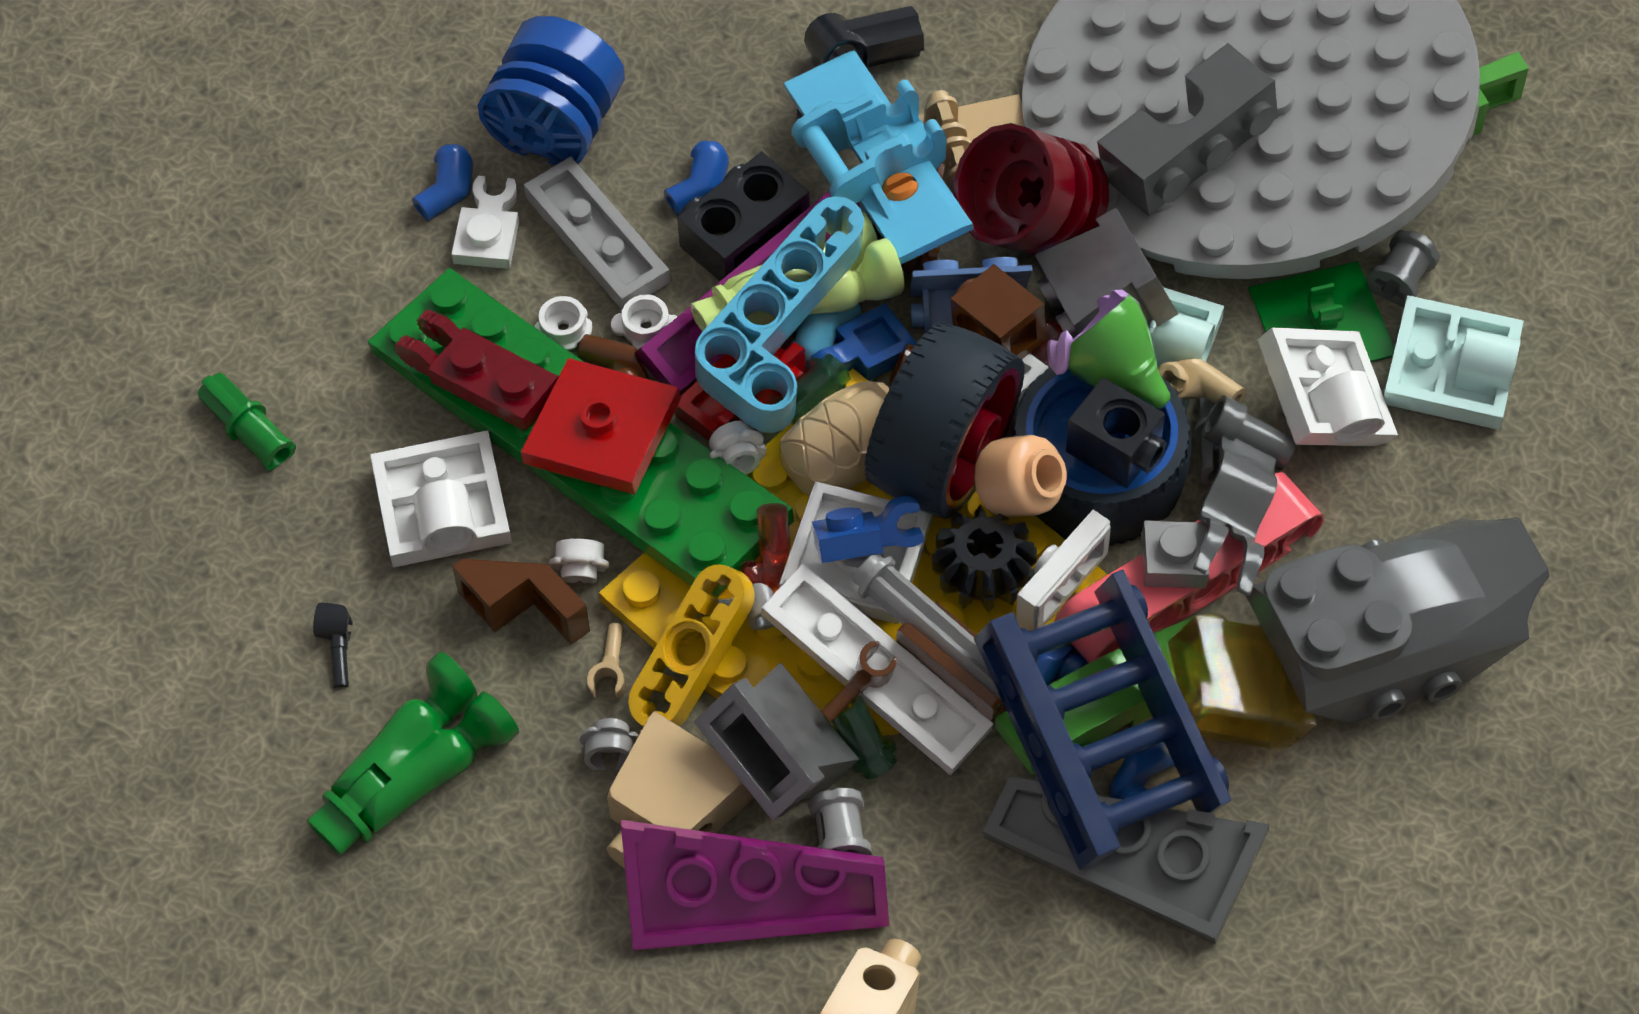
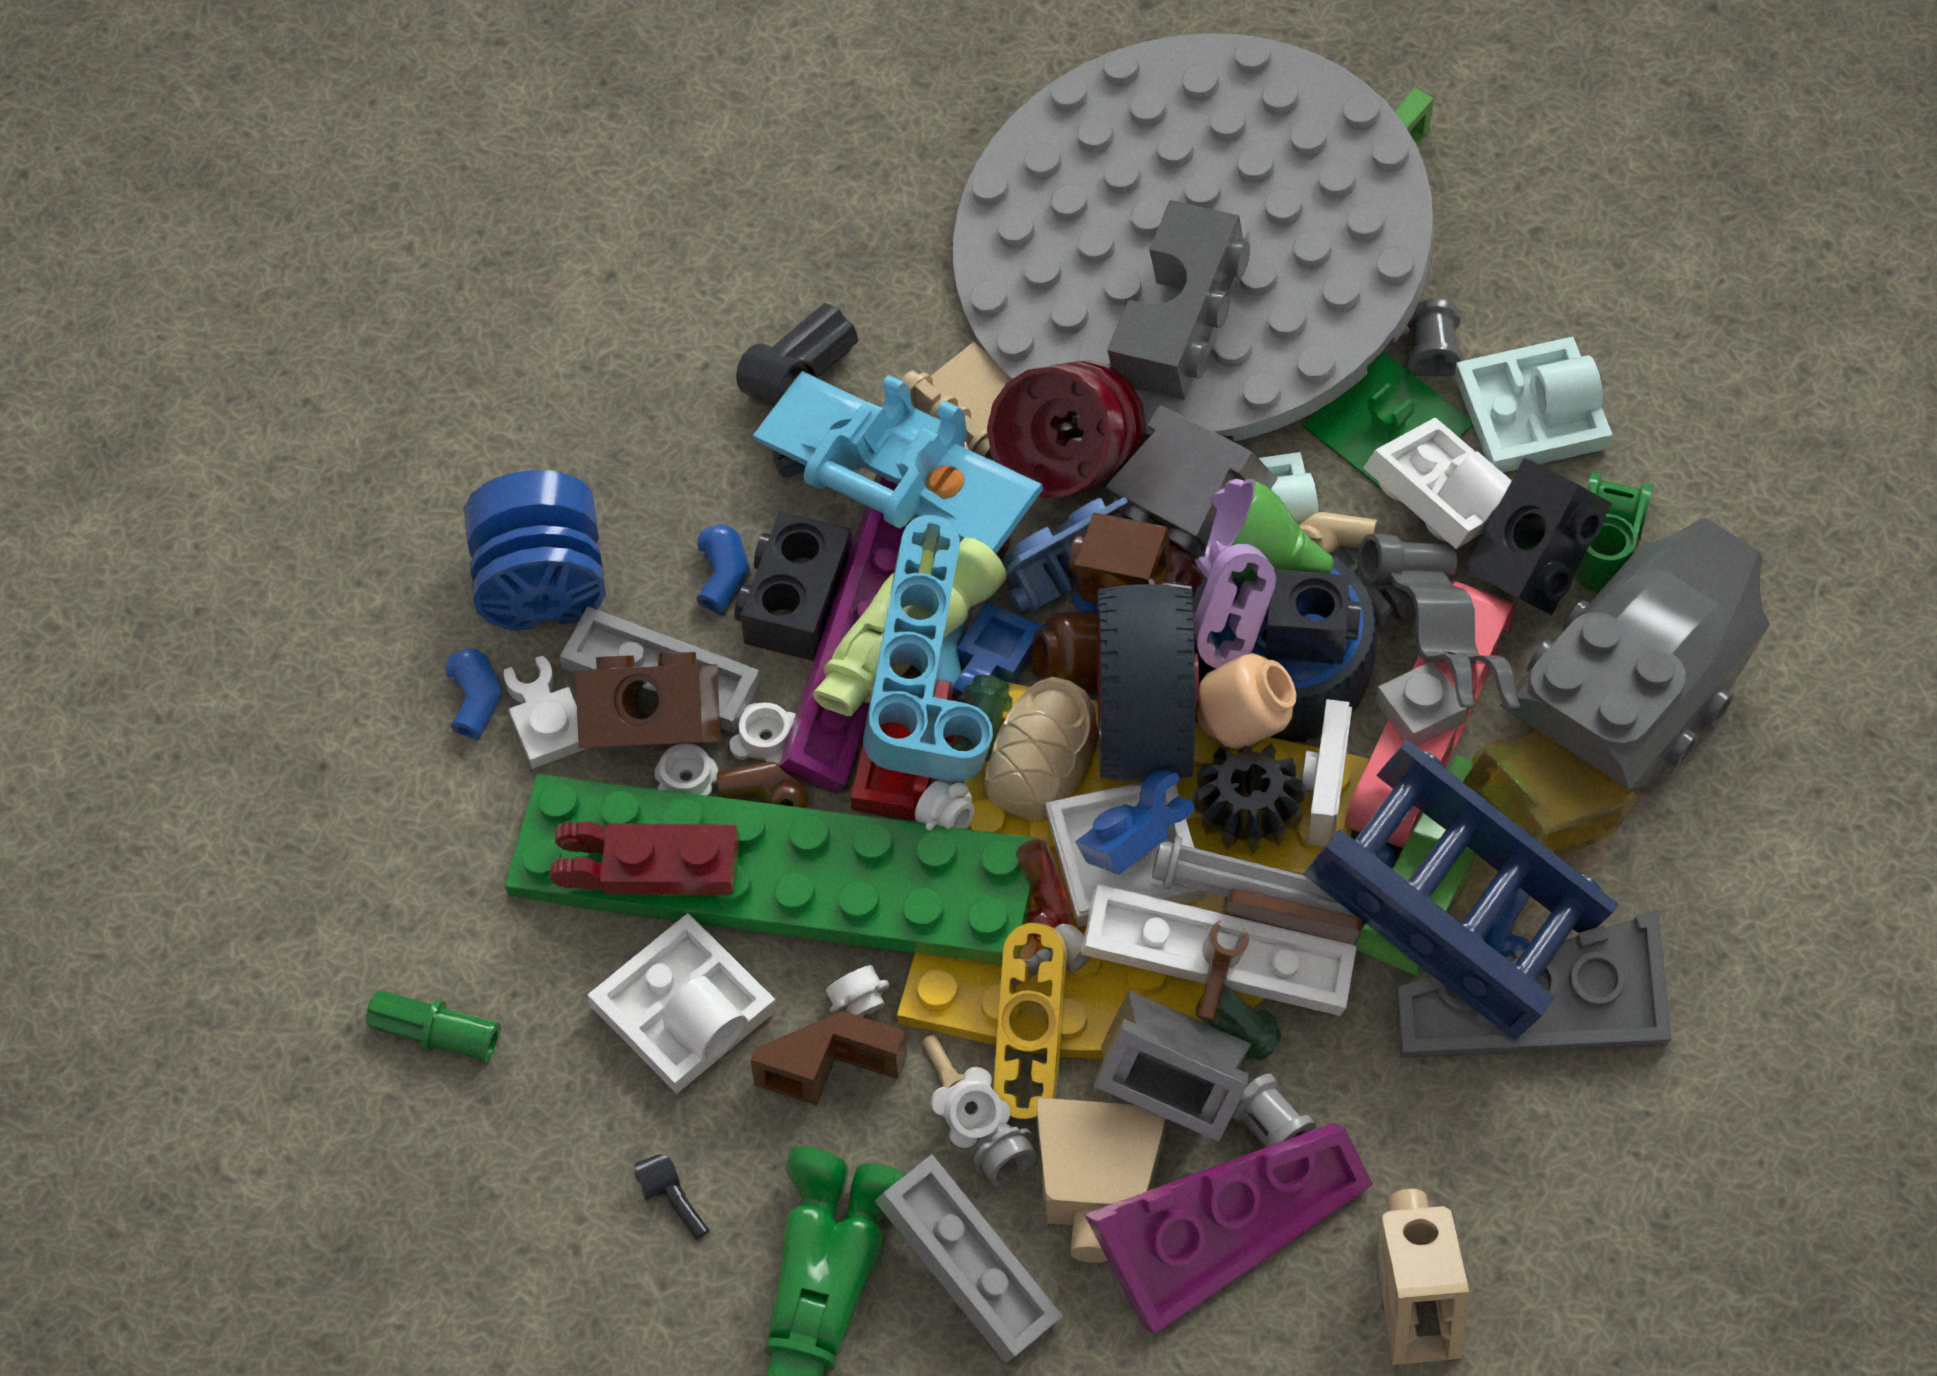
camera: 30 degrees left, 0 degrees up
(519, 809) = (968, 1258): none -> light grey plate
(531, 244) = (610, 710): none -> reddish brown brick
(592, 708) = (989, 1108): none -> white plate
(601, 426) = (808, 852): red plate -> none
(1042, 383) = (1219, 601): none -> lavender beam
(1371, 467) = (1538, 536): none -> black brick
(1451, 488) = (1618, 534): none -> green piece

